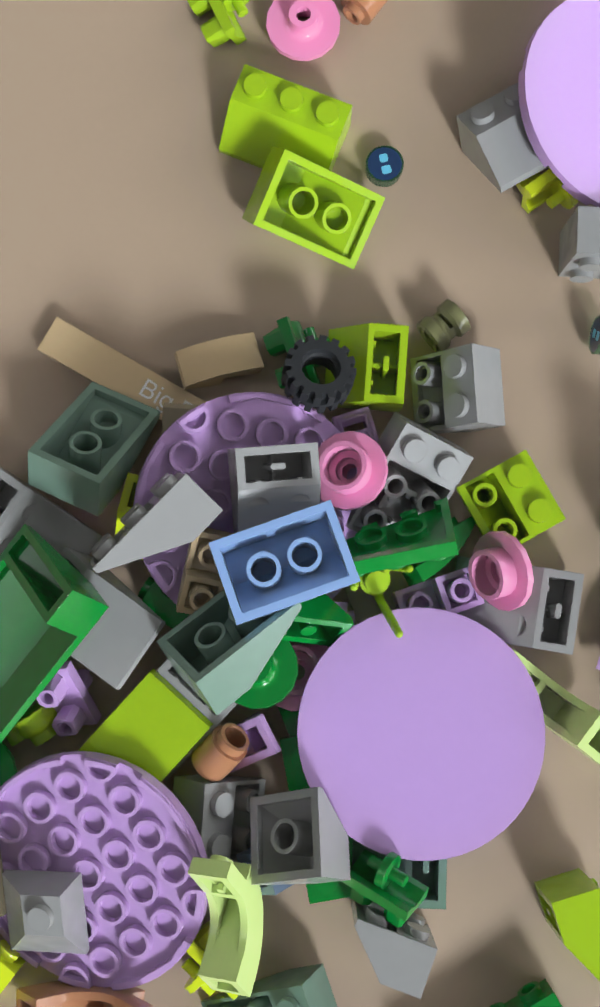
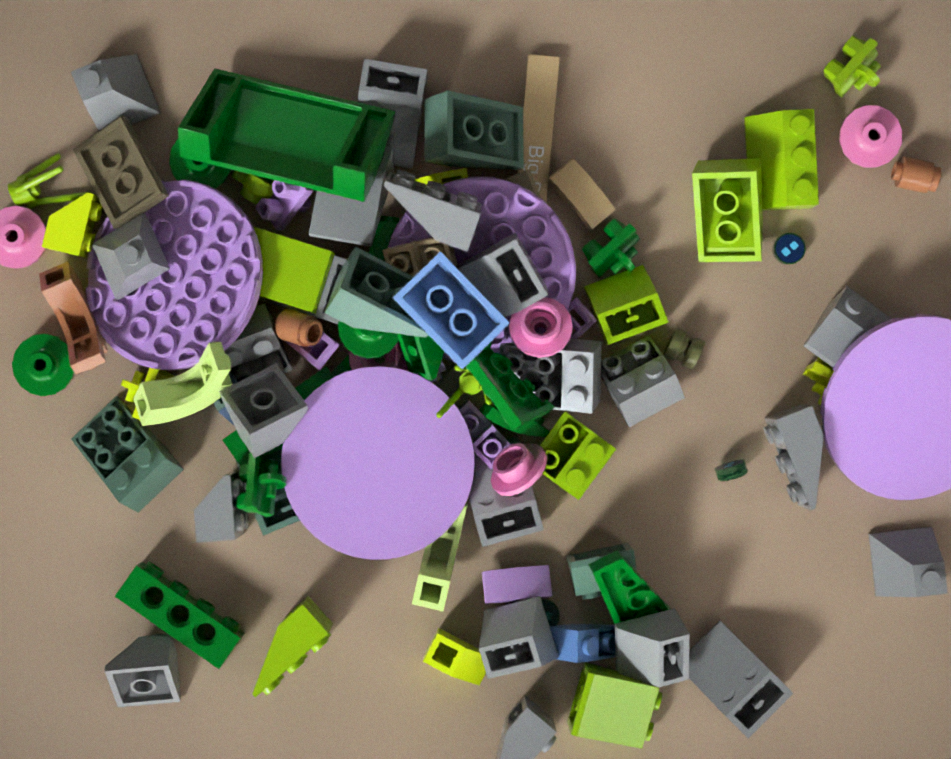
camera: 65 degrees right, 5 degrees up
(324, 354) = (618, 269): black tyre -> none

